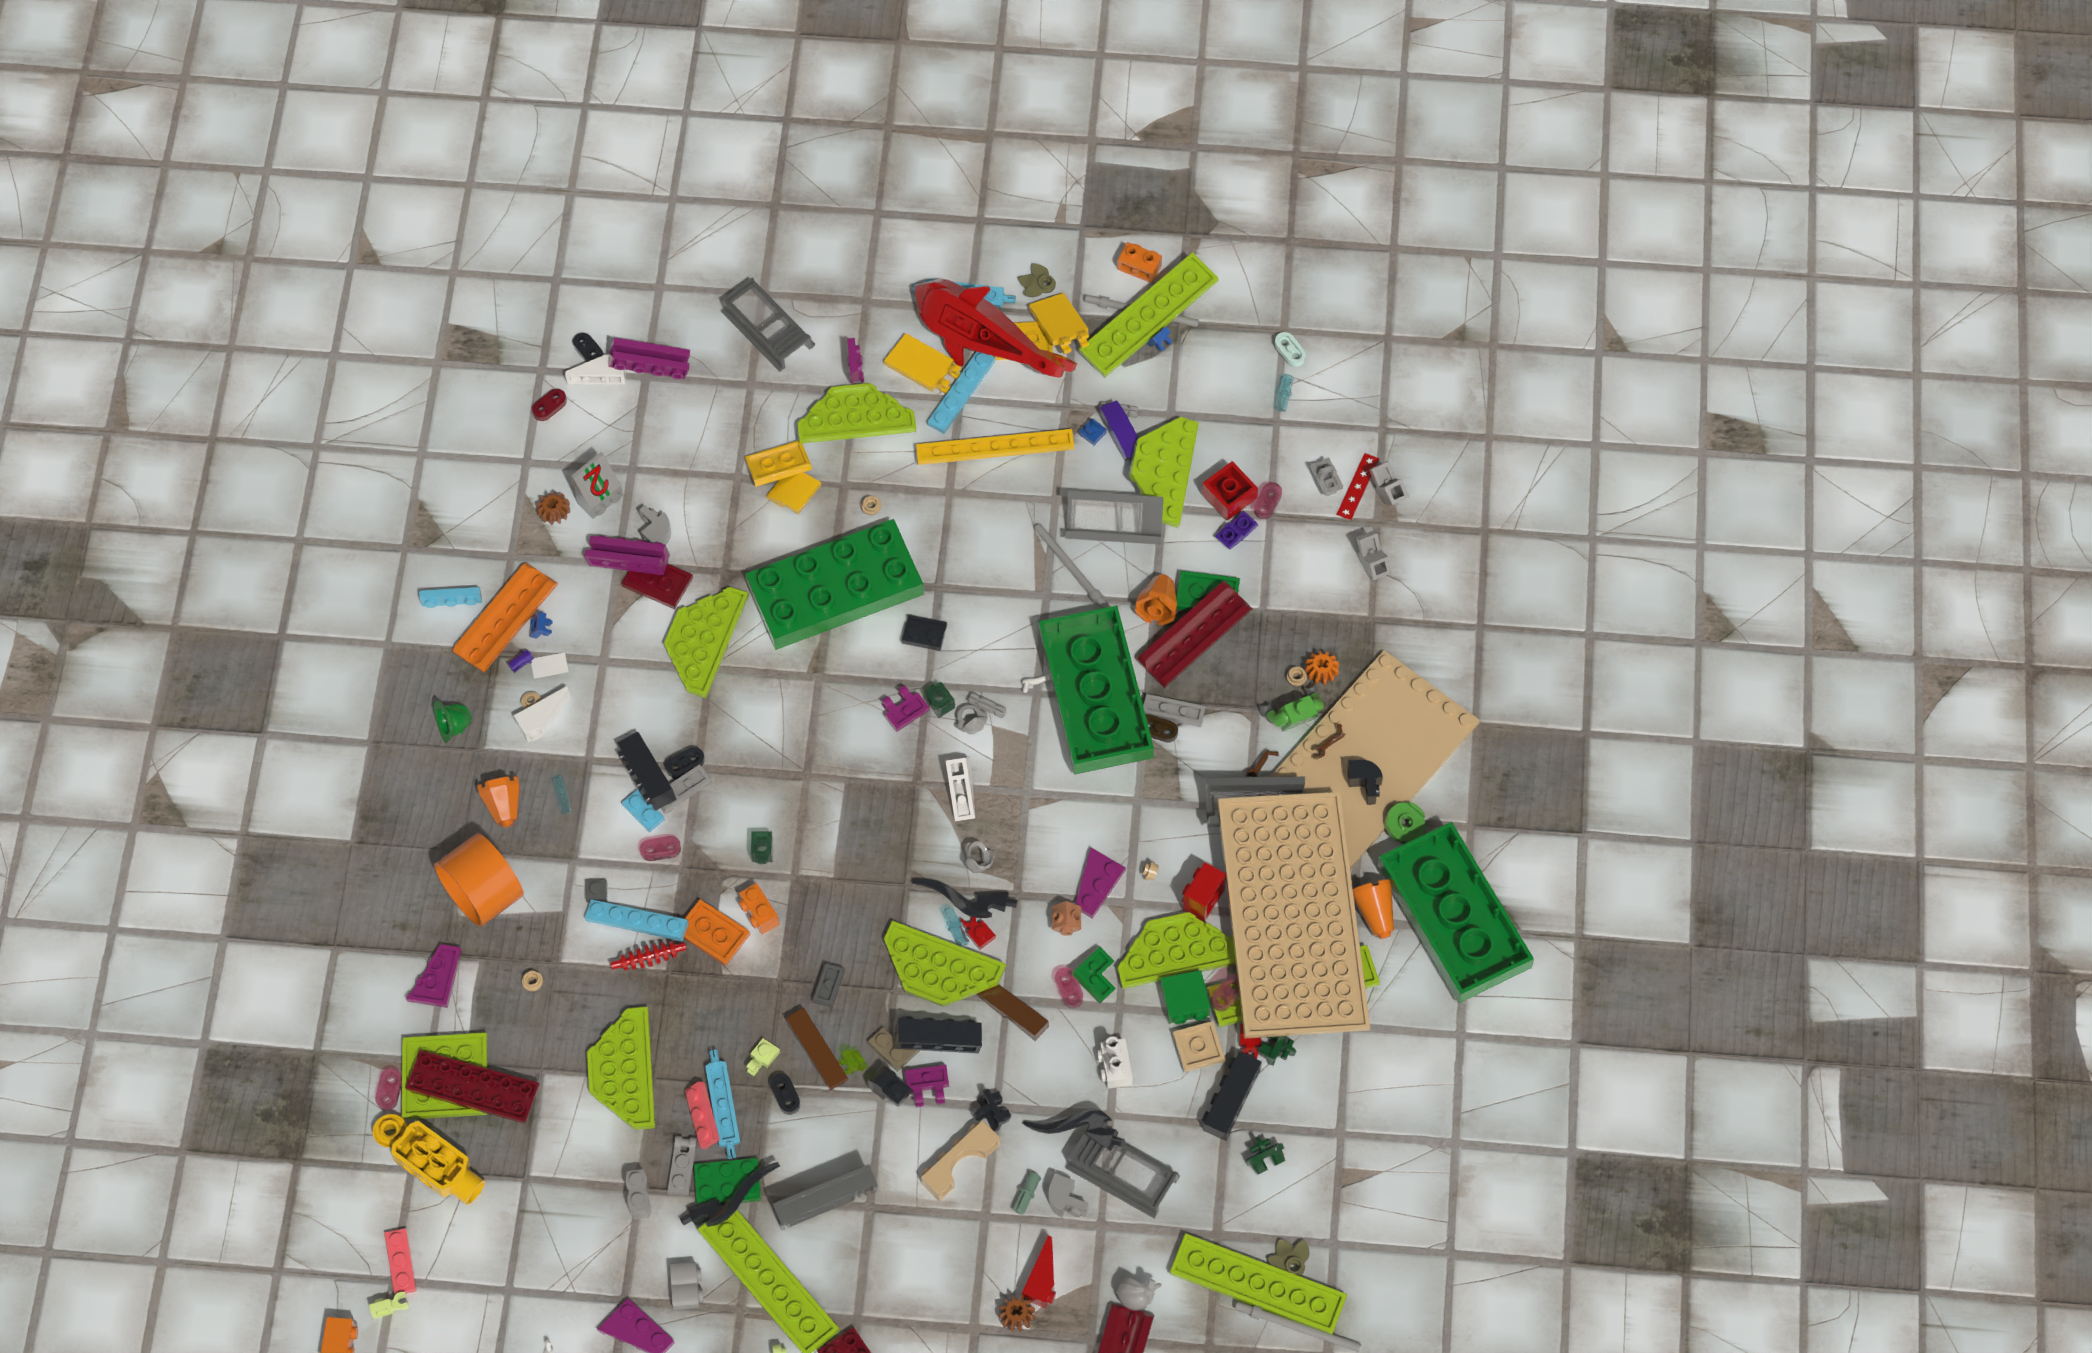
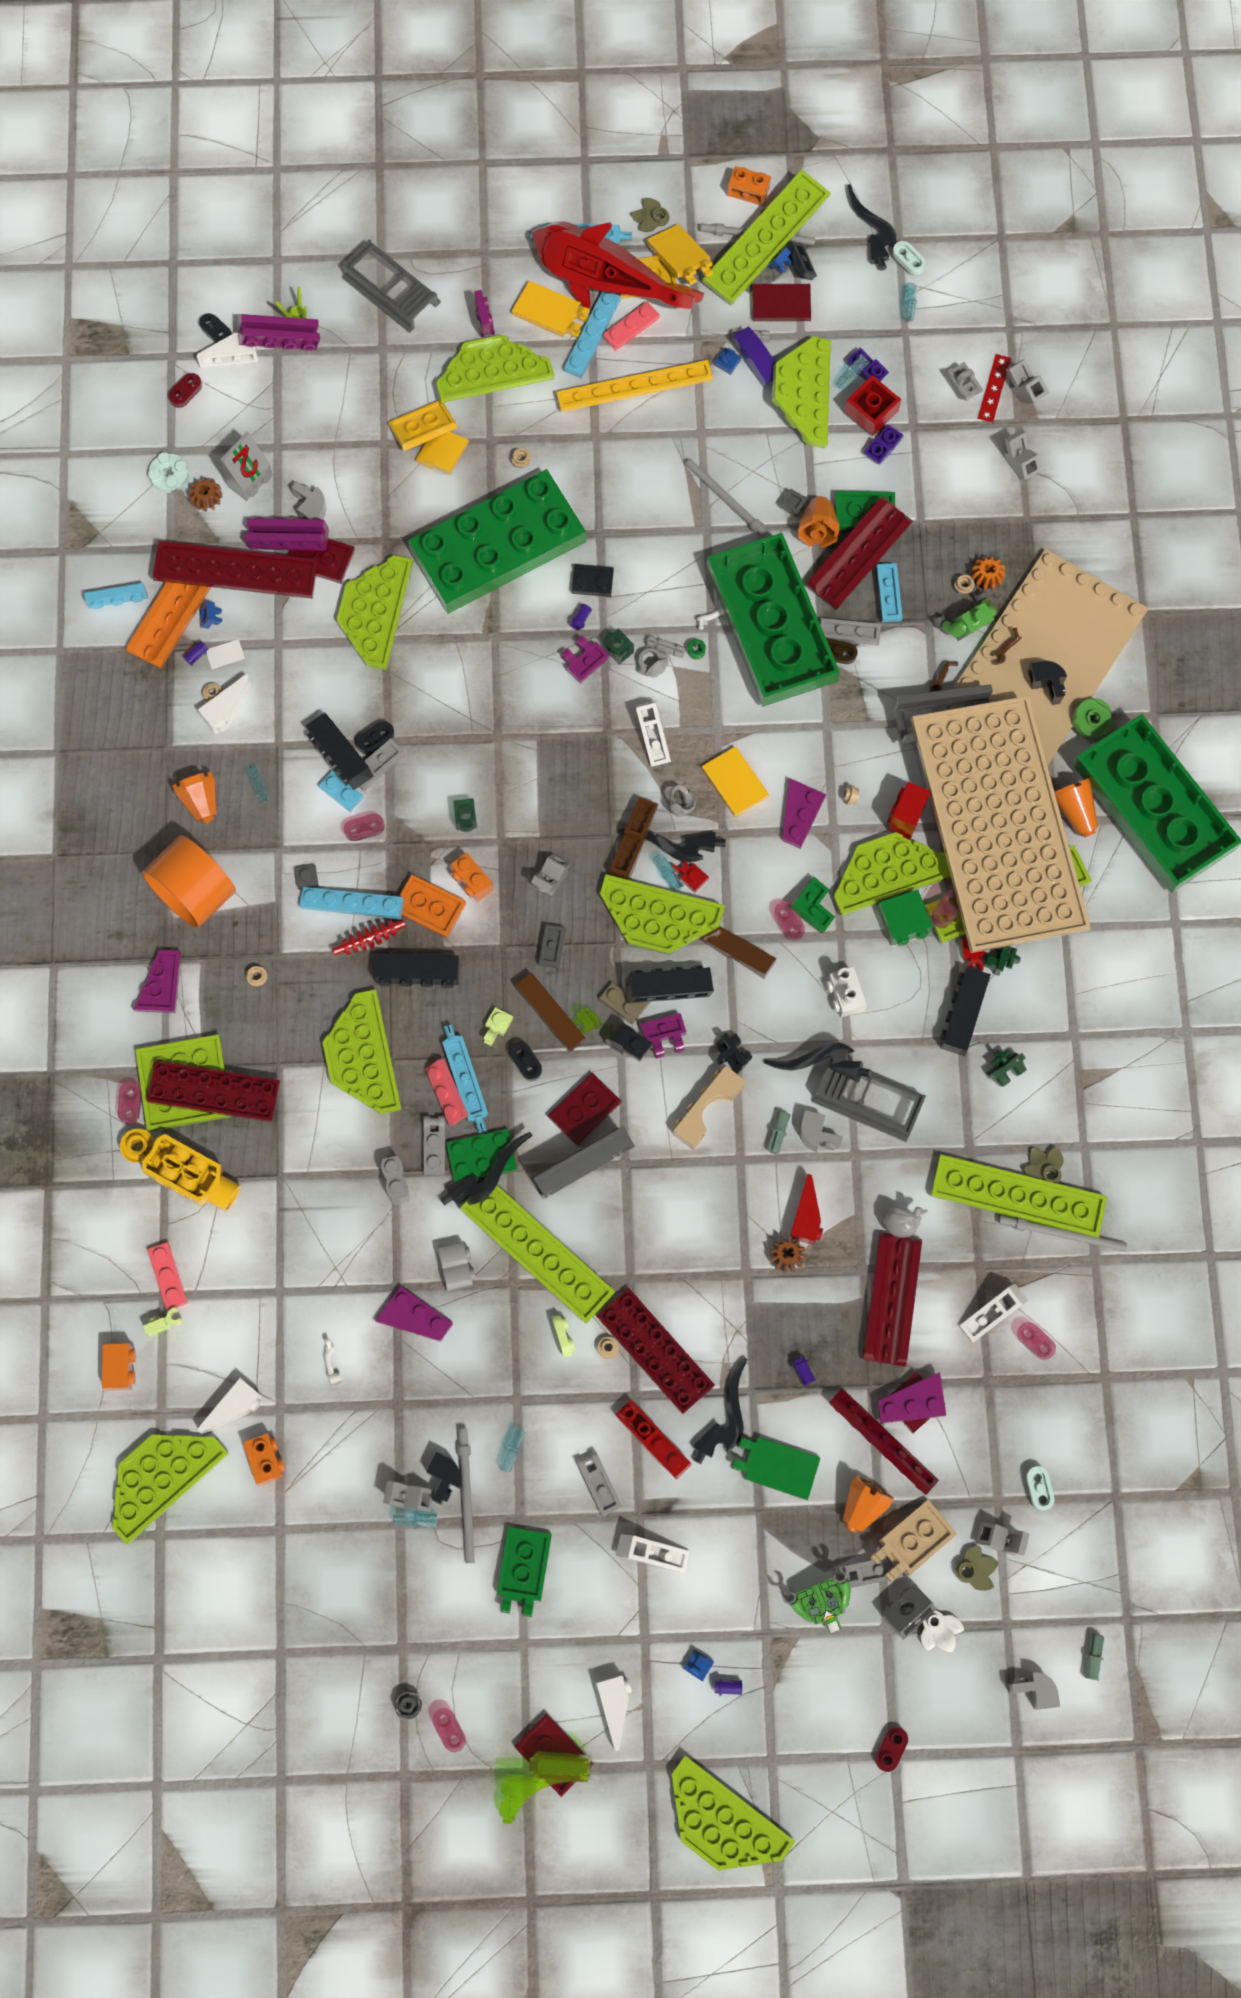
camera: 10 degrees left, 10 degrees up
(451, 719) = (135, 720): green piece -> none
(520, 473) = (171, 482): none -> light aqua plate
(571, 584) = (235, 569): none -> dark red plate
(669, 340) = (296, 311): none -> lime plant
(690, 992) = (416, 969): none -> black brick
(837, 1148) = (584, 1109): none -> dark red tile
(838, 915) = (551, 874): none -> light grey brick
(906, 667) = (579, 619): none -> dark purple pin
(925, 890) = (633, 839): none -> reddish brown slope
(1001, 388) = (631, 326): none -> coral plate
(1017, 717) = (696, 642): none -> green bush
(1036, 845) = (735, 781): none -> yellow tile
(1066, 918) = (777, 852): nougat brick -> none
(1114, 517) = (763, 444): piece -> none
(1137, 577) = (793, 502): none -> dark grey plate
(1155, 380) = (781, 302): none -> dark red tile
(1181, 341) = (801, 260): none -> black plate
(1198, 1046) = (925, 965): tan plate -> none
(1215, 456) = (852, 372): none -> clear light blue axle
(1219, 676) = (889, 592): none -> medium azure plate
(1230, 451) = (874, 368): none -> dark purple slope
(1261, 331) = (887, 234): none -> black piece
(1268, 502) = (910, 413): clear pink plate -> none

